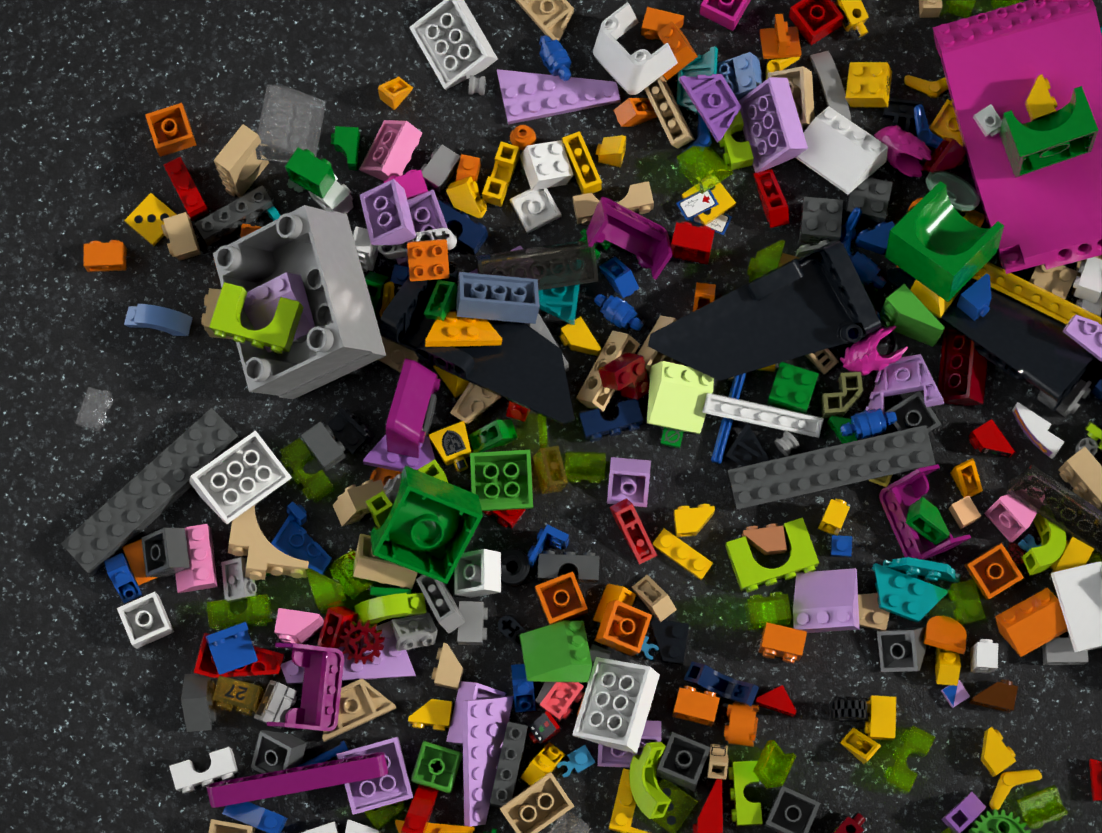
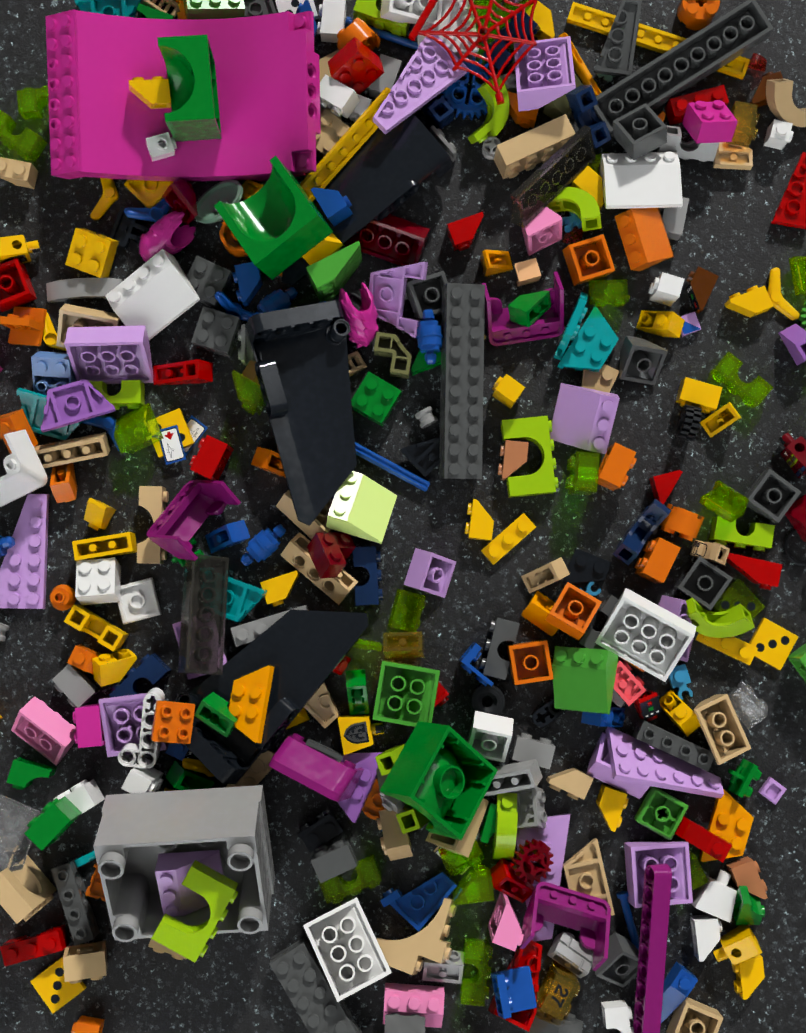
camera: 80 degrees left, 10 degrees up
(158, 318) = (165, 998): medium blue arch -> none
(387, 214) = (116, 753): lavender slope -> none
(497, 298) = (226, 661): sand blue slope -> none
(633, 530) = (477, 580): red slope -> none
(672, 437) = (396, 522): green tile -> none
(763, 415) = (395, 433): white tile -> none
(841, 546) = (532, 391): blue plate -> none
(945, 634) = (637, 317): orange tile -> none
(1036, 430) = (465, 186): white slope -> none

